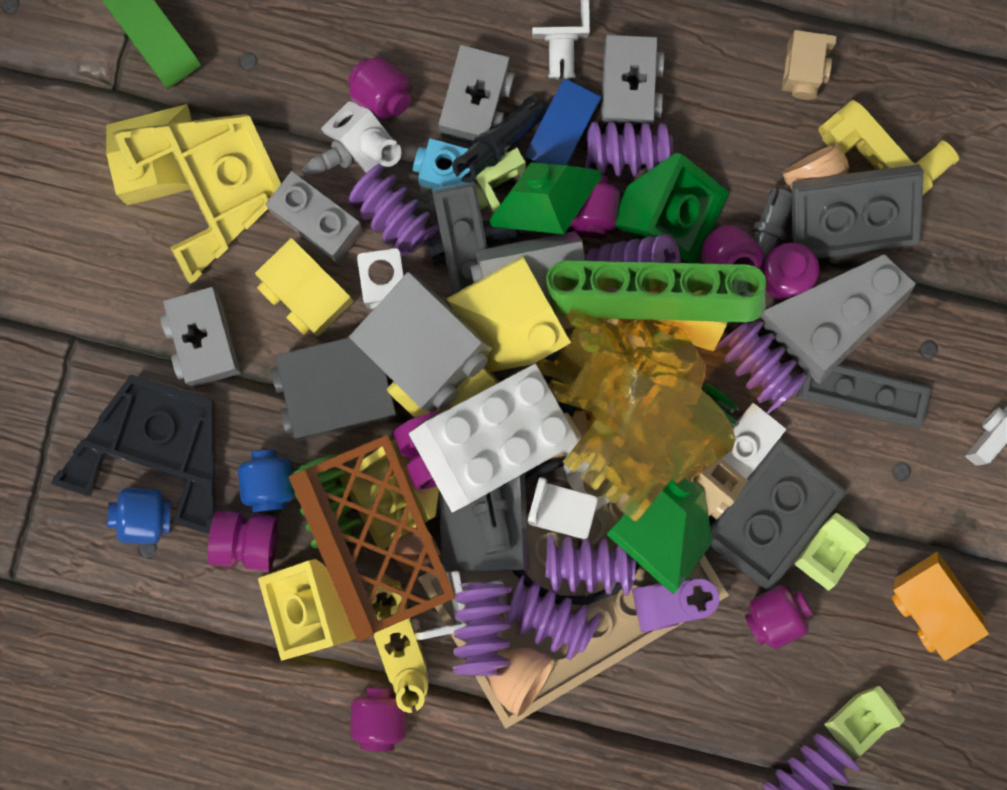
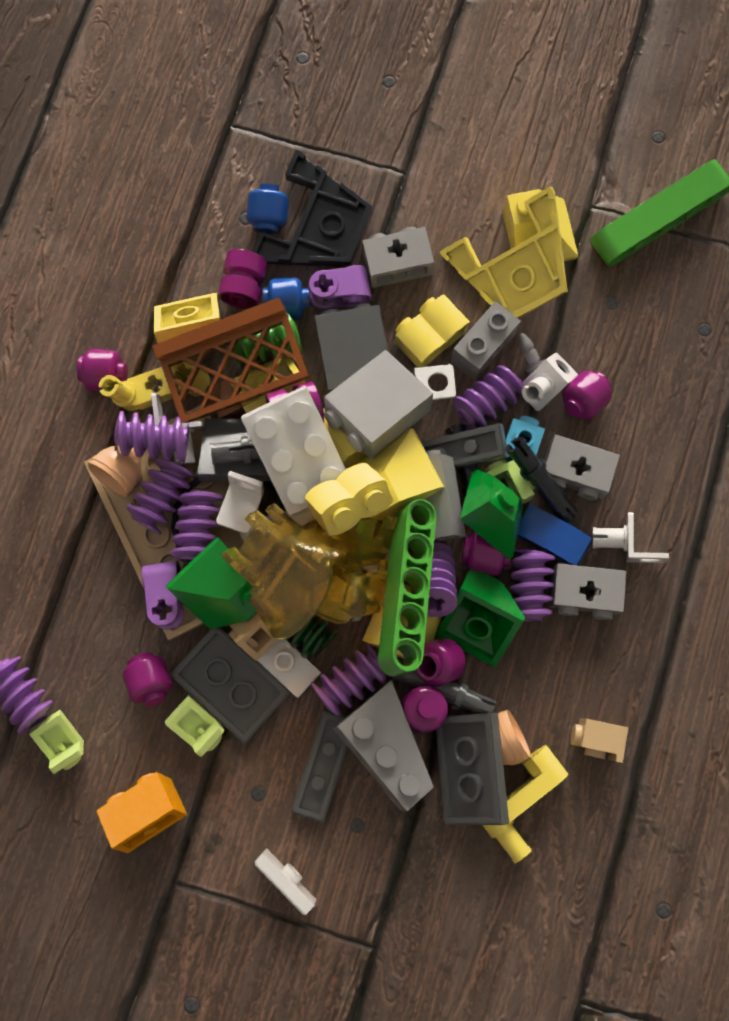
camera: 95 degrees right, 5 degrees down
(248, 402) = (343, 287): none -> medium lavender piece
(559, 364) = (352, 496): none -> light yellow brick

